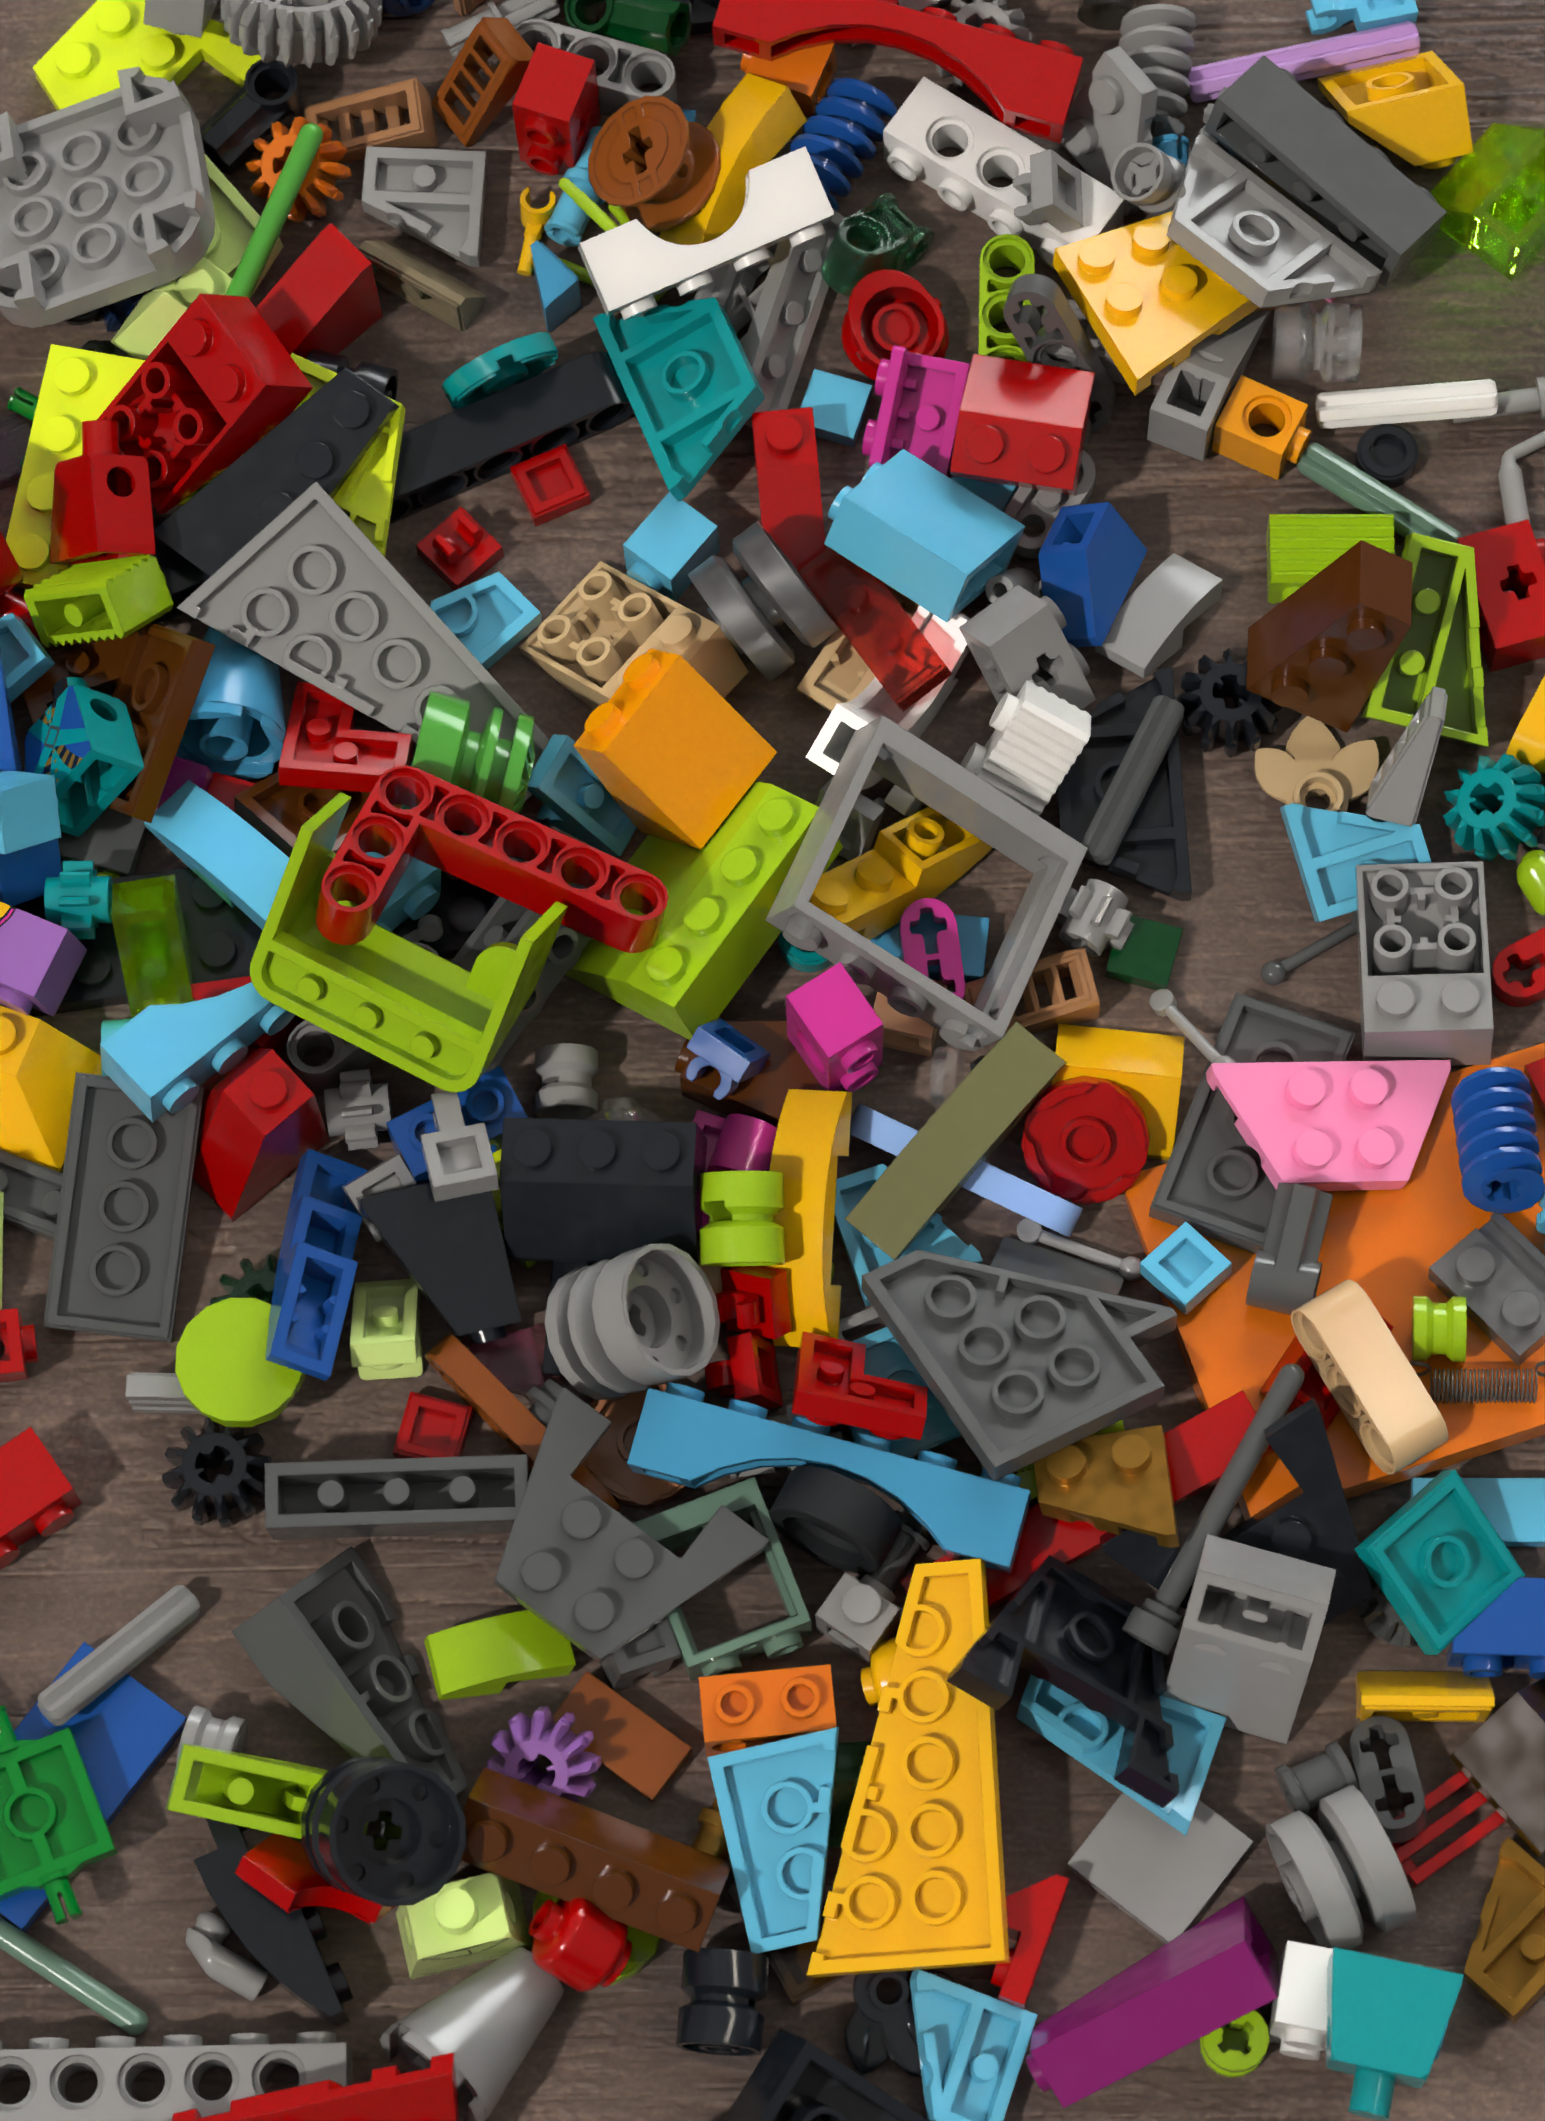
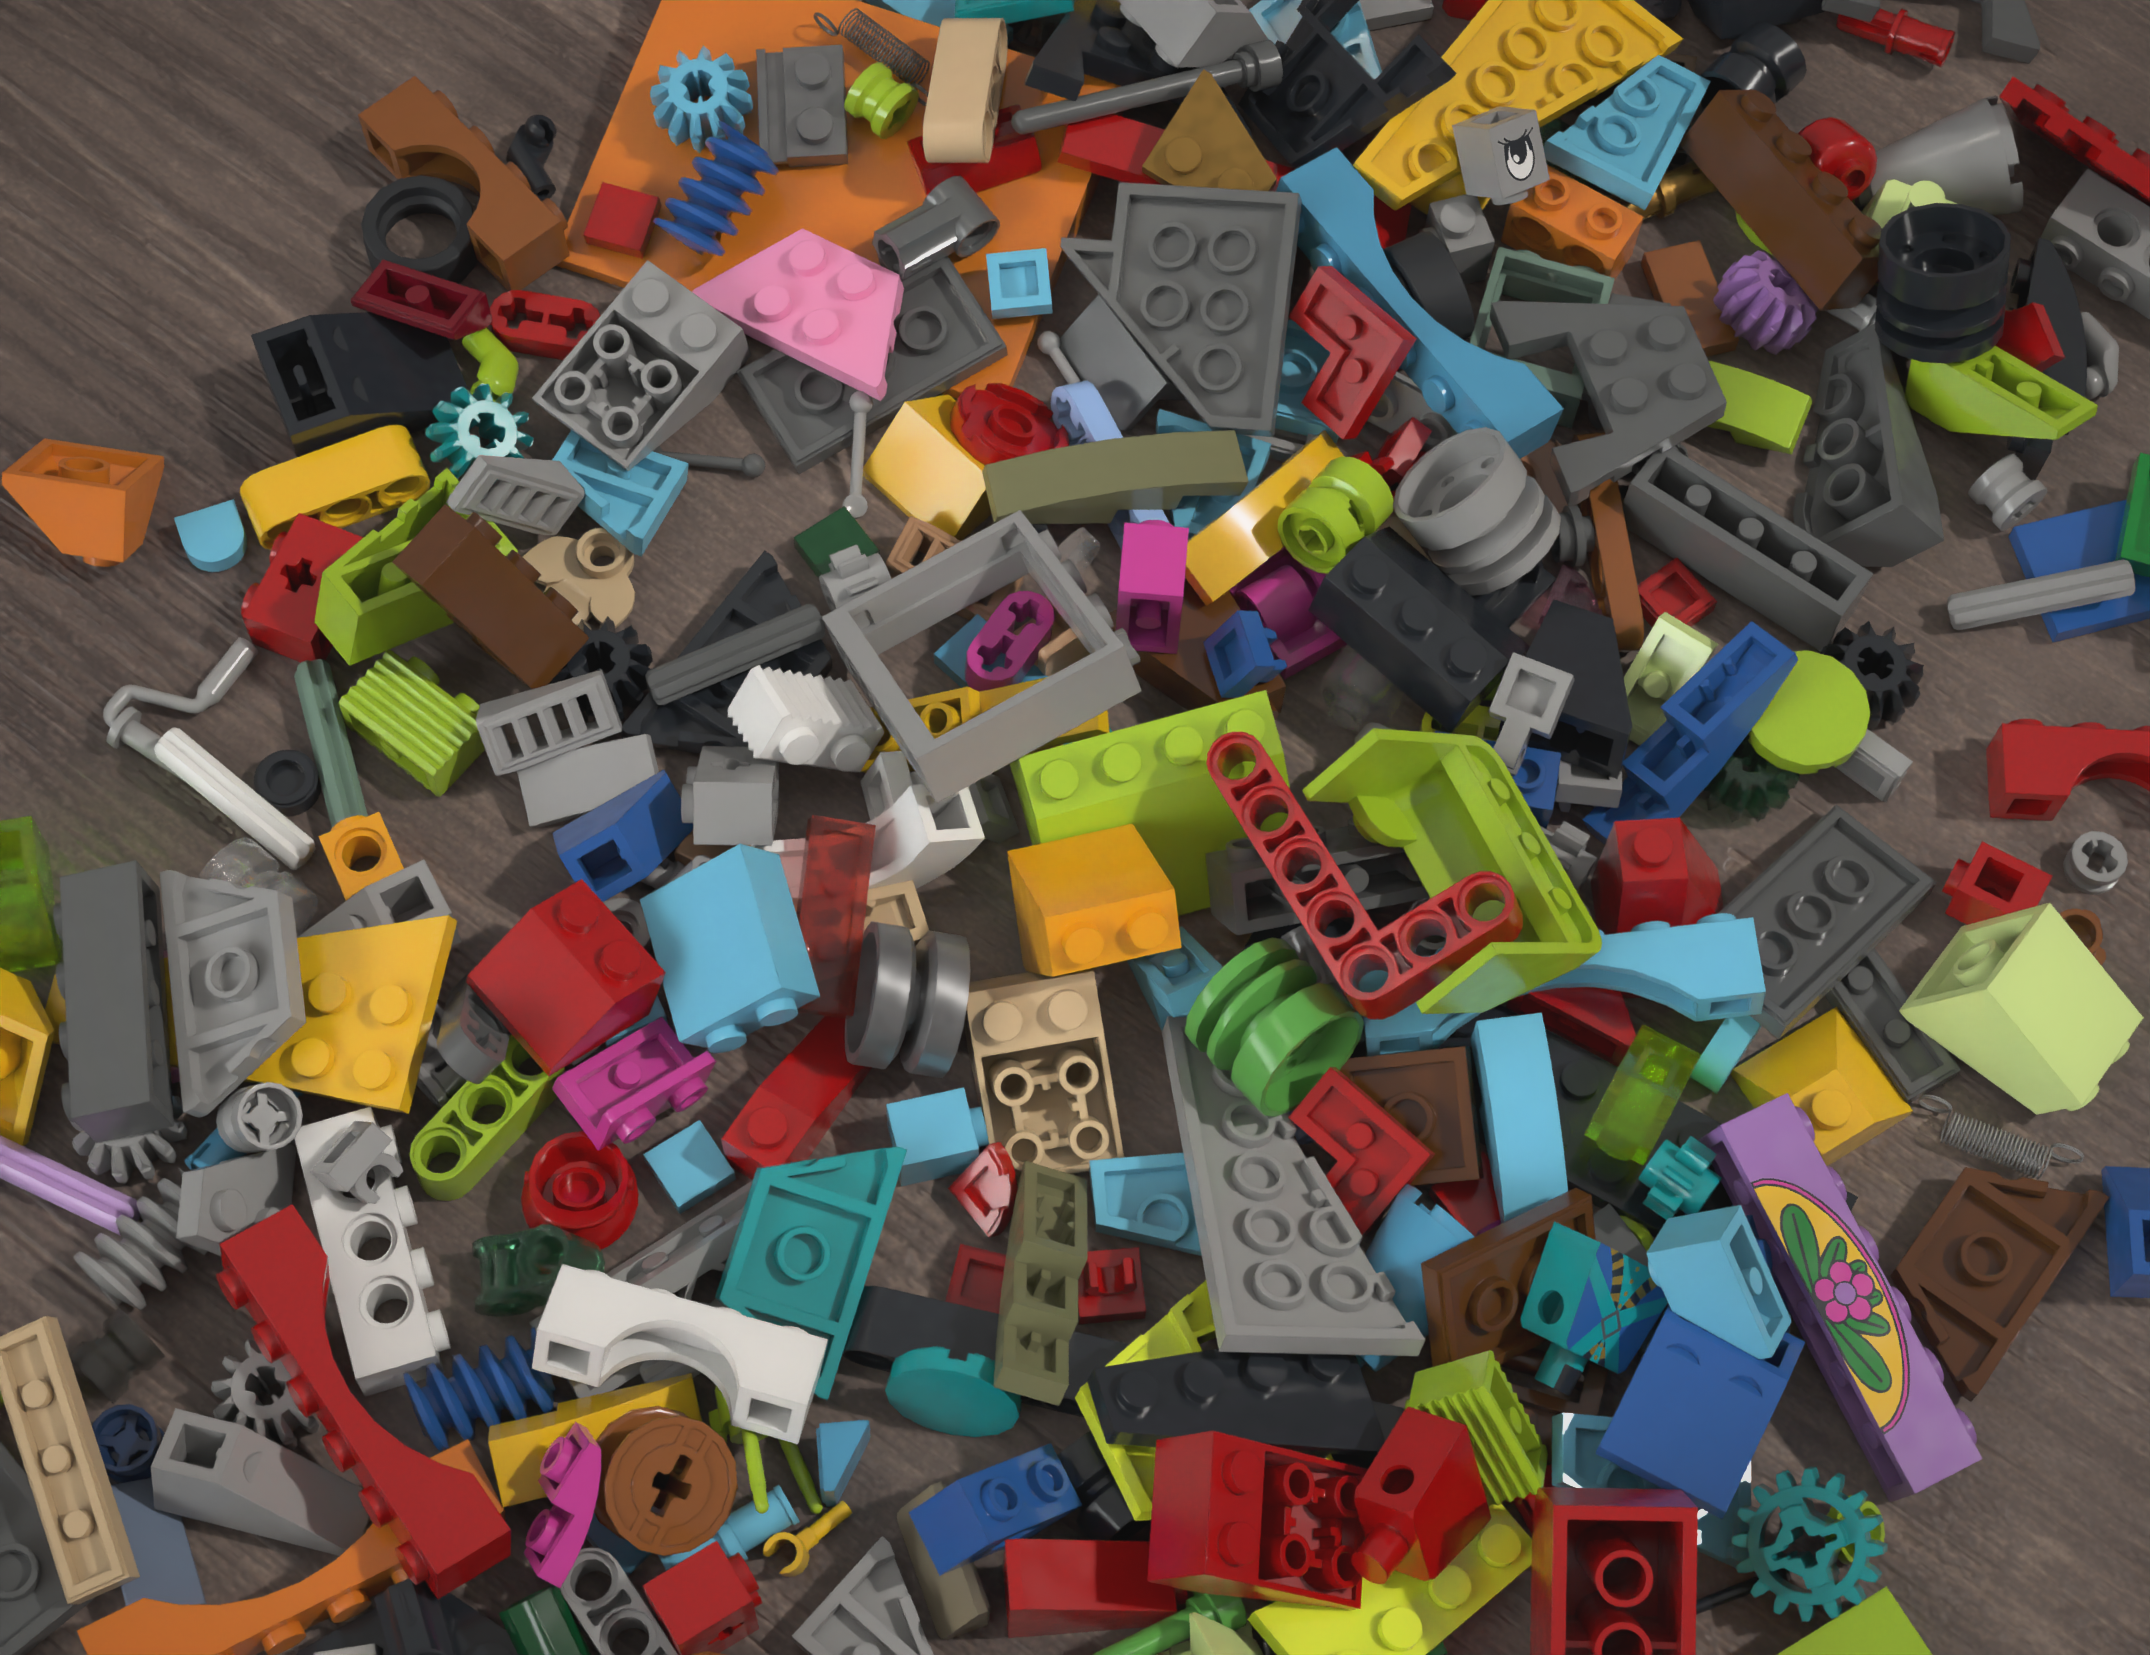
camera: 150 degrees left, 5 degrees down
(402, 303) = (994, 1505): none -> blue brick
(498, 482) = (1041, 1283): none -> olive slope
(599, 544) = (988, 1189): none -> tile
(697, 87) = (572, 1484): none -> dark pink slope
(863, 1670) = (1501, 154): none -> light grey brick
(1225, 606) = (554, 742): none -> light grey slope

